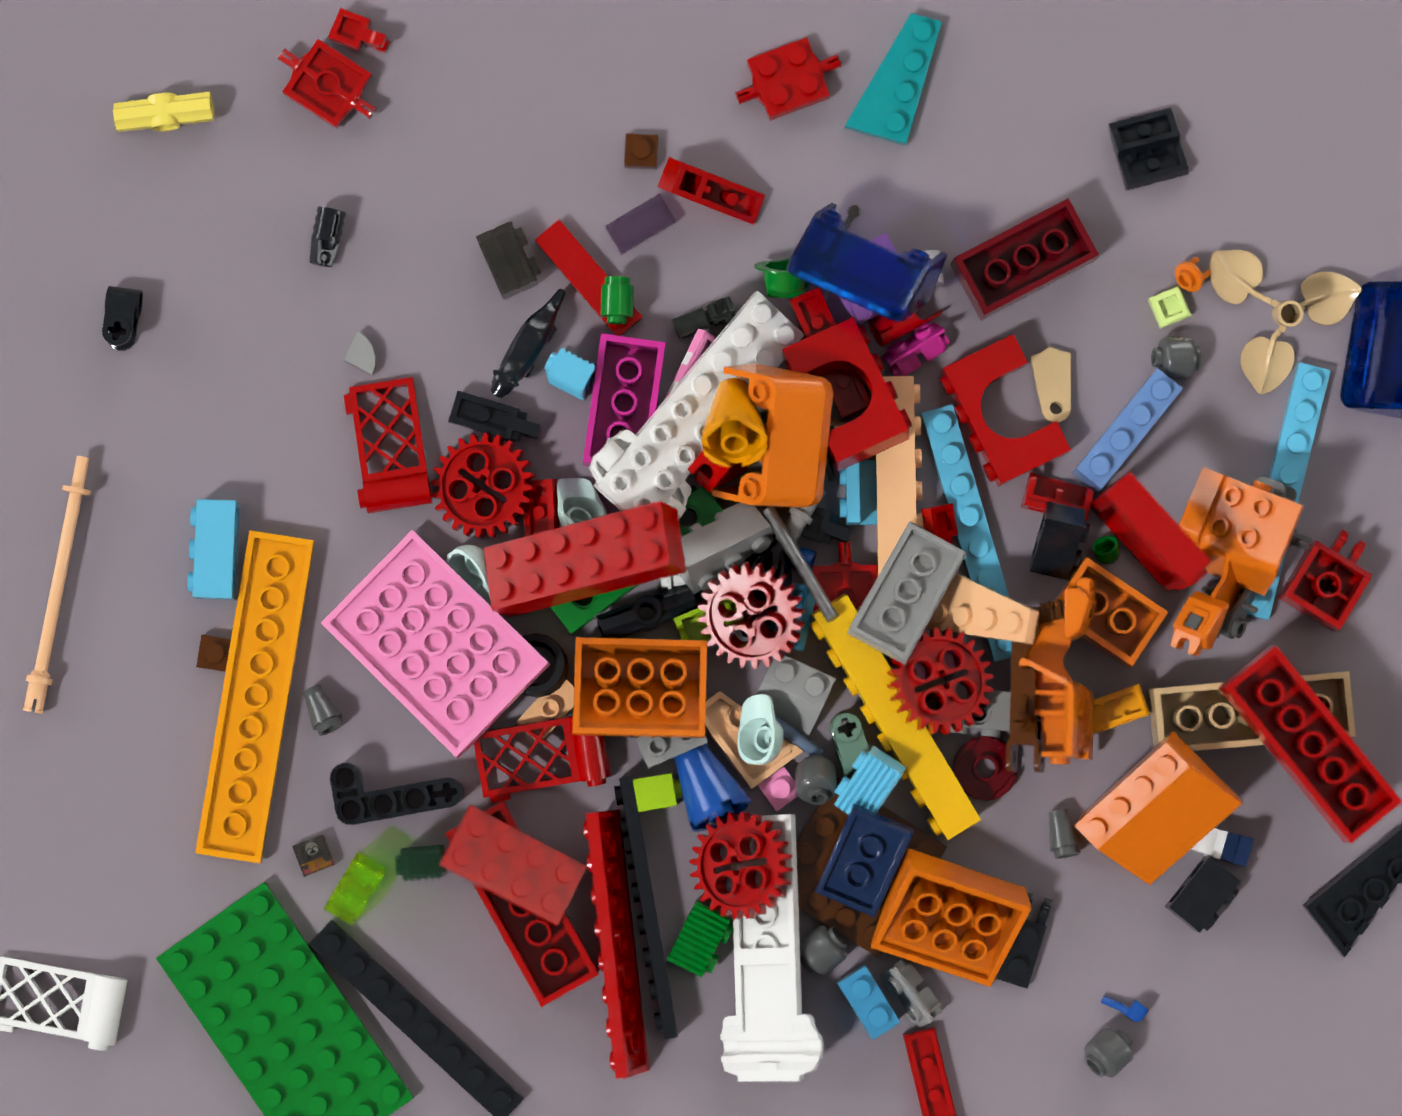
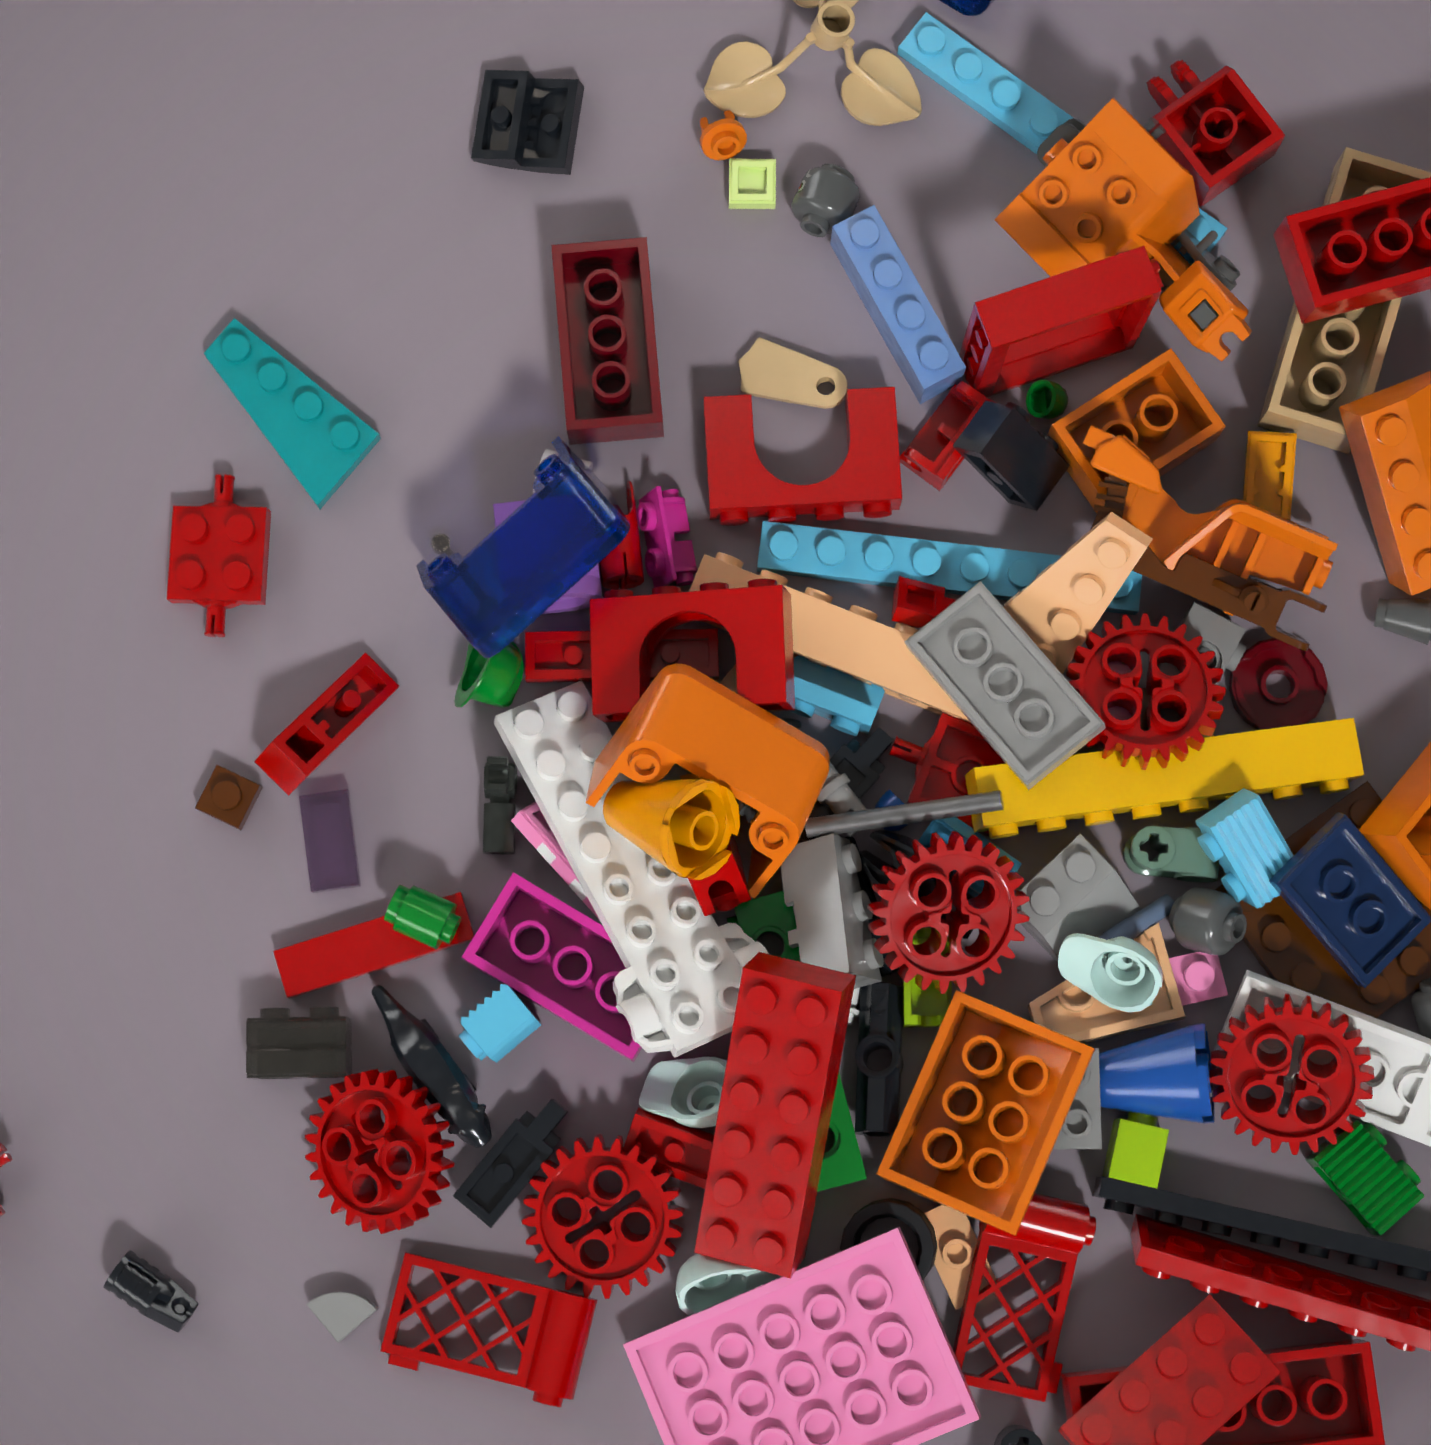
camera: 60 degrees left, 5 degrees down
(465, 334) = (379, 1150): none -> red gear

